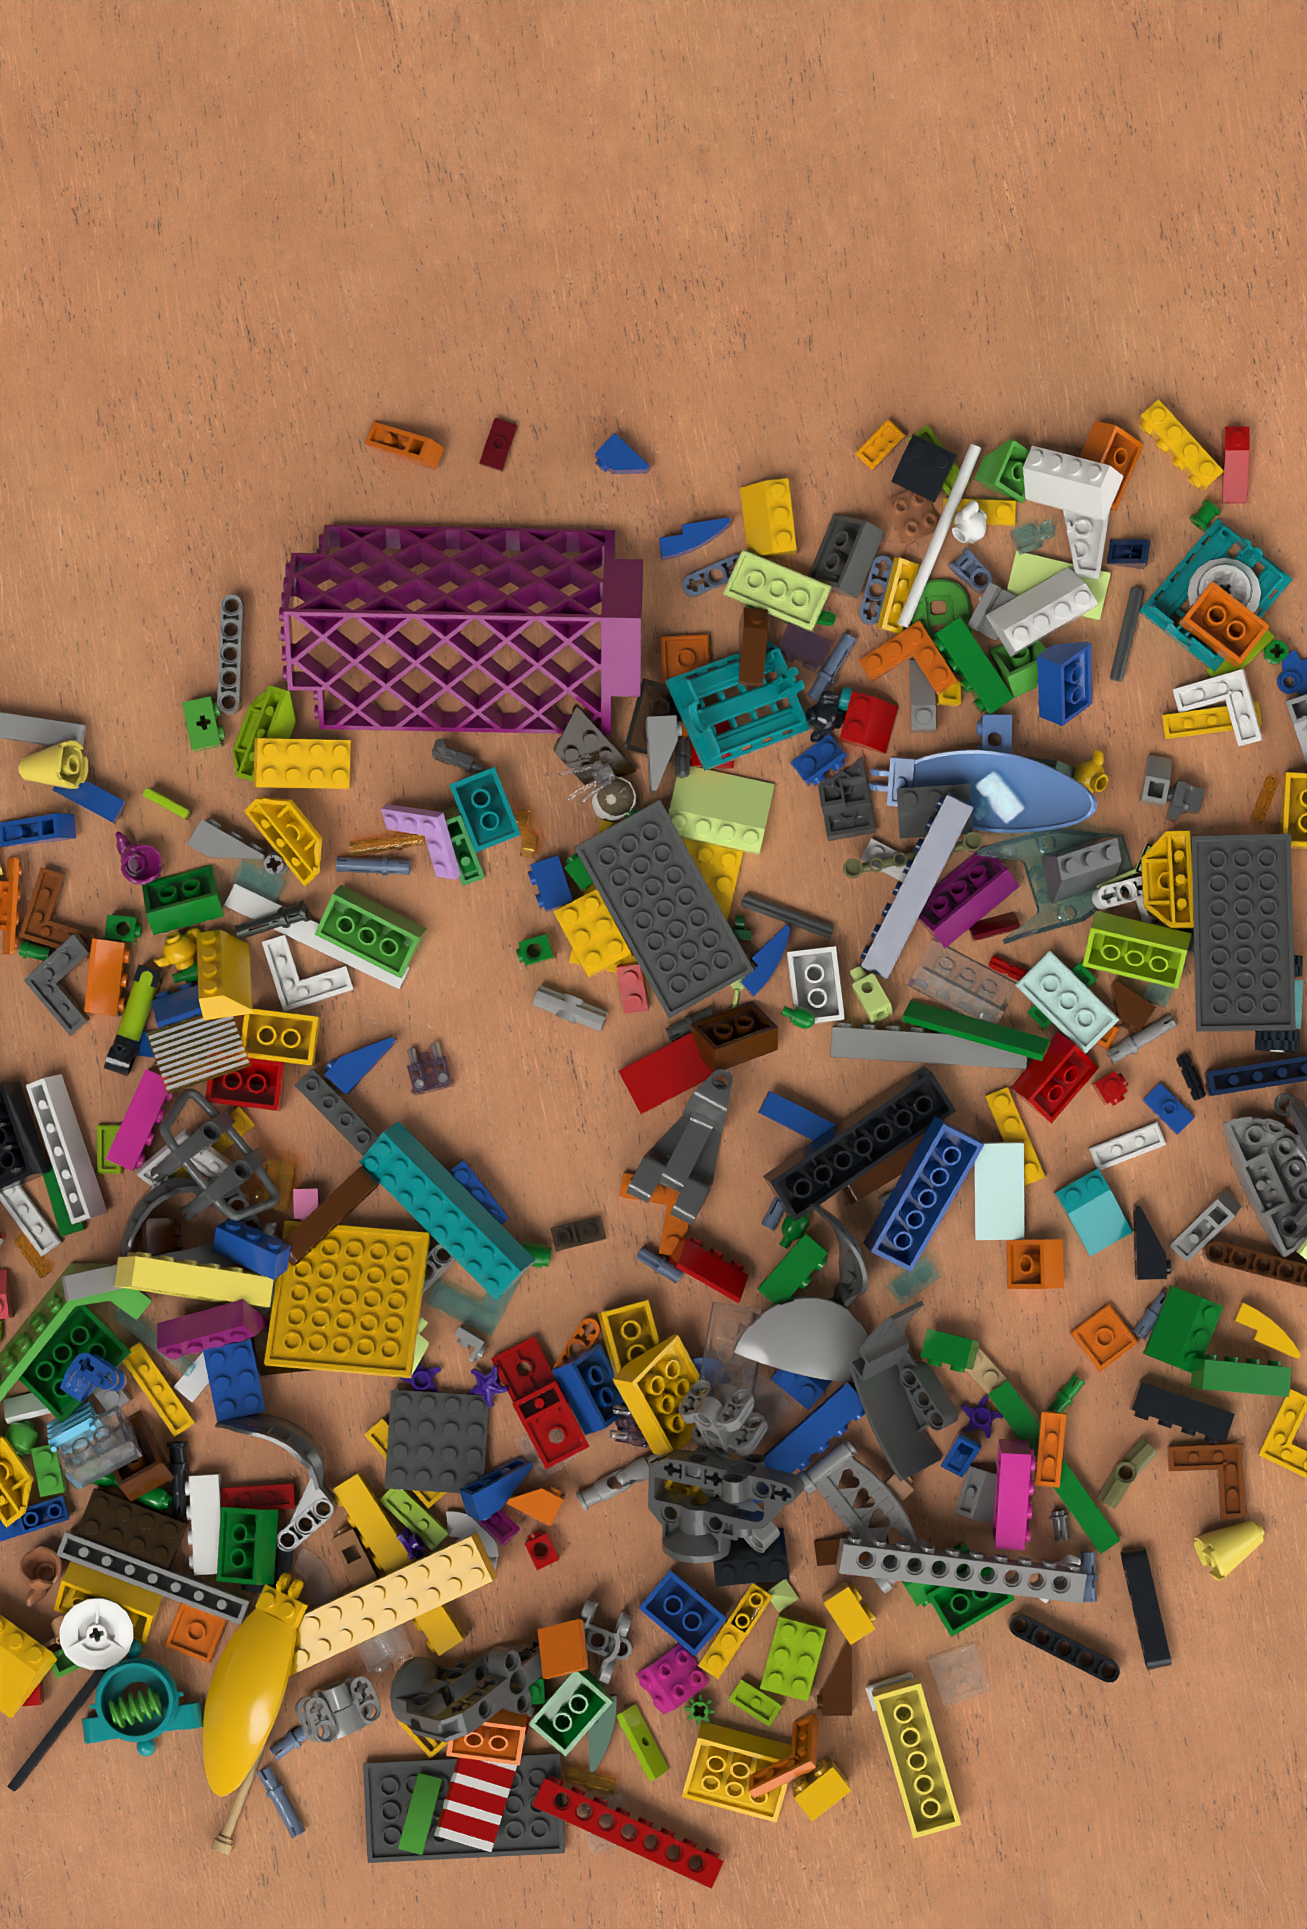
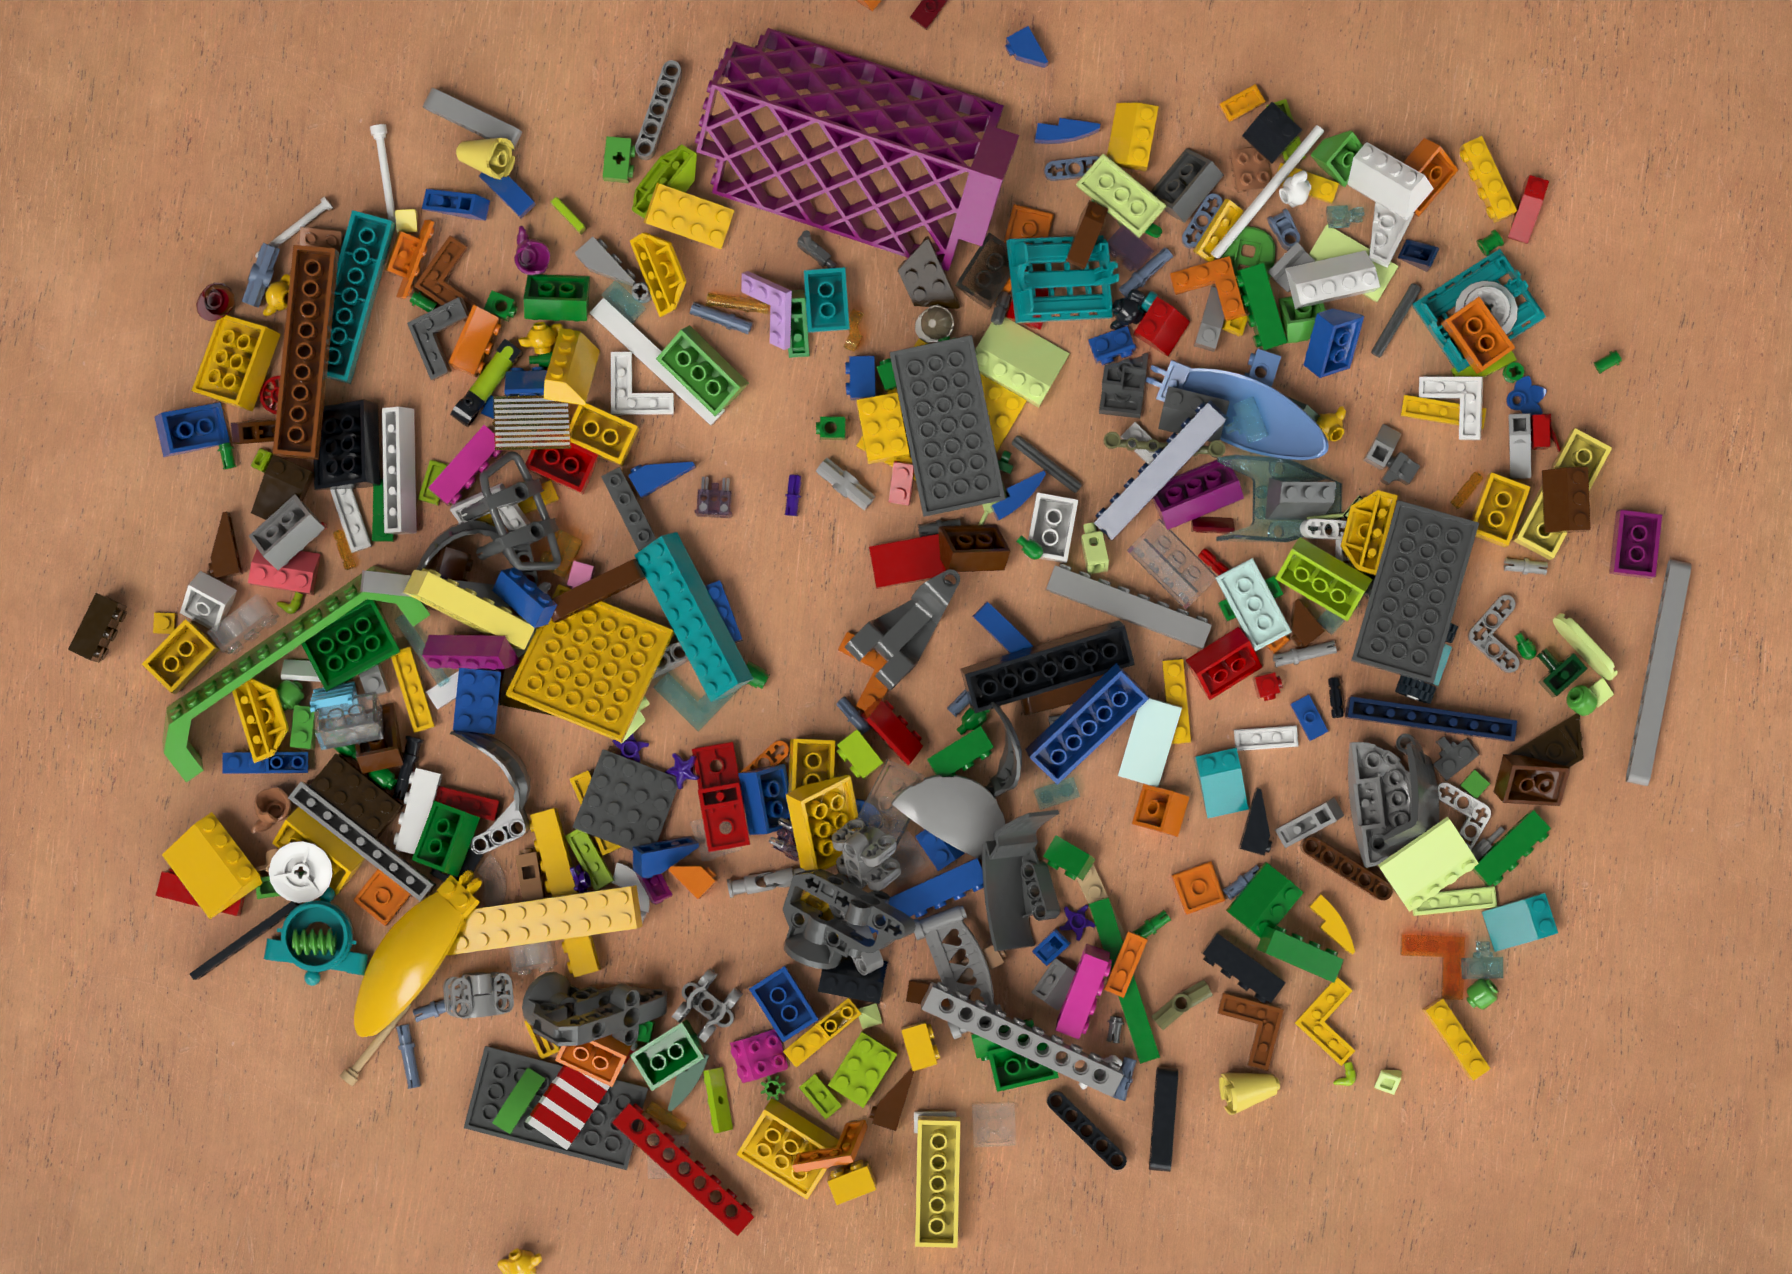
camera: 10 degrees right, 0 degrees up
(82, 1381) = (353, 661): blue piece -> none
(285, 920) = (635, 337): pearl dark grey pin -> none
(469, 1339) = (678, 727): light grey bracket -> none
(515, 1039) = (793, 495): none -> dark purple axle
(541, 1561) = (691, 924): red brick -> none
(563, 1649) = (677, 1002): orange tile -> none
(578, 1233) = (795, 669): clear smoke slope -> none
(603, 776) = (931, 302): clear plant -> none
(661, 740) = (987, 288): light grey slope -> none
(681, 1308) = (859, 754): none -> lime brick
(976, 1030) = (1171, 604): green tile -> none

